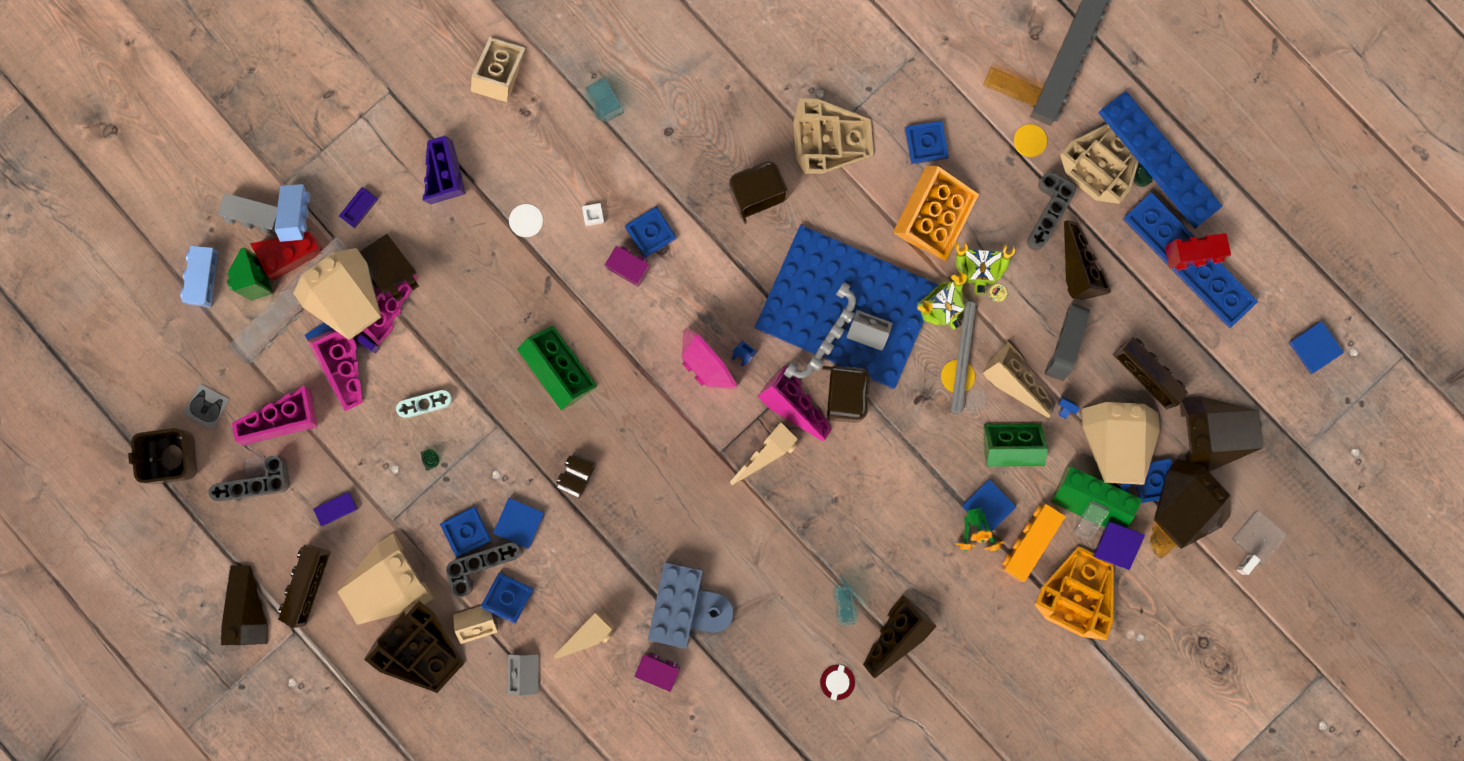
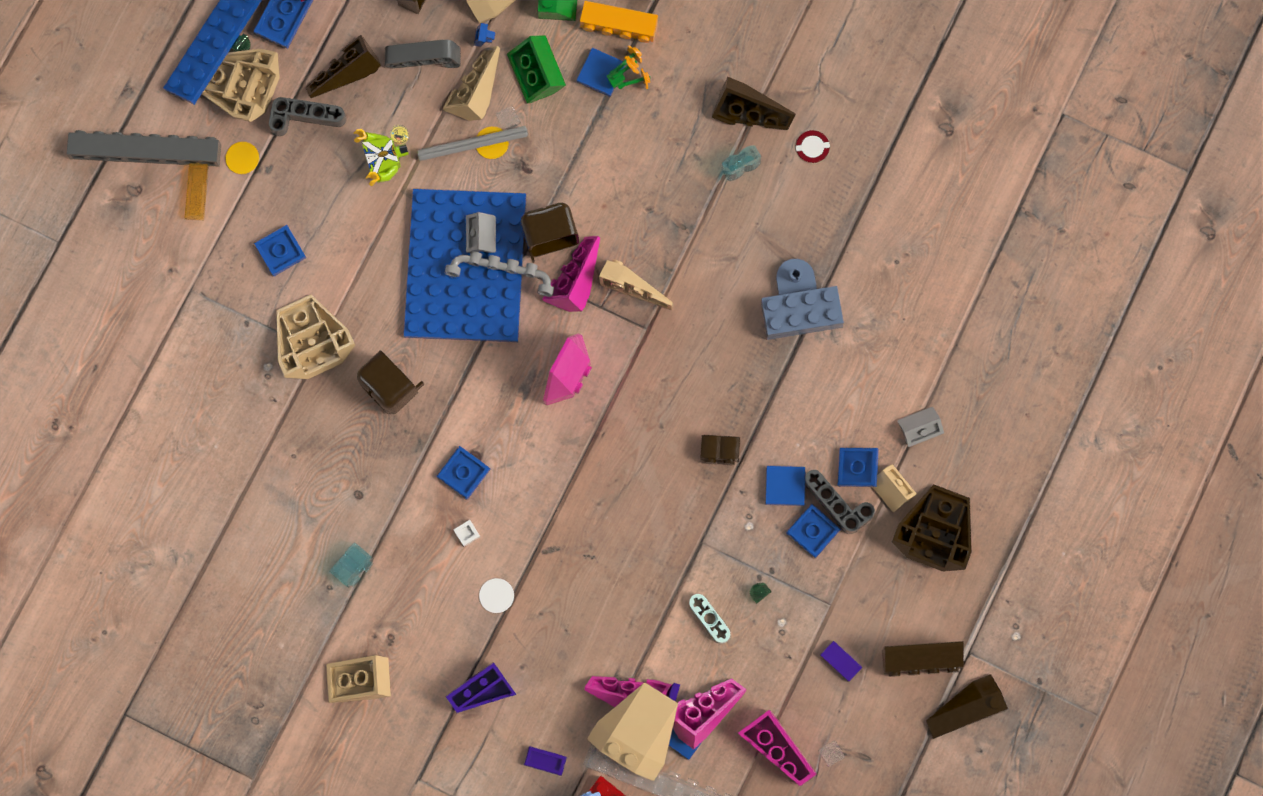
camera: 105 degrees left, 5 degrees down
(249, 485) = (850, 751): dark grey beam -> none
(383, 584) = (891, 587): tan wedge -> none
(388, 266) = (592, 700): dark brown tile -> none
(556, 367) = (627, 507): green slope -> none
(590, 634) = (860, 377): tan slope -> none
(627, 266) = (504, 479): magenta brick -> none
(657, 672) = (868, 305): magenta brick -> none
(744, 351) = (544, 340): blue tile -> none
(936, 212) = (345, 216): light orange slope -> none
(944, 303) = (429, 176): torso -> none

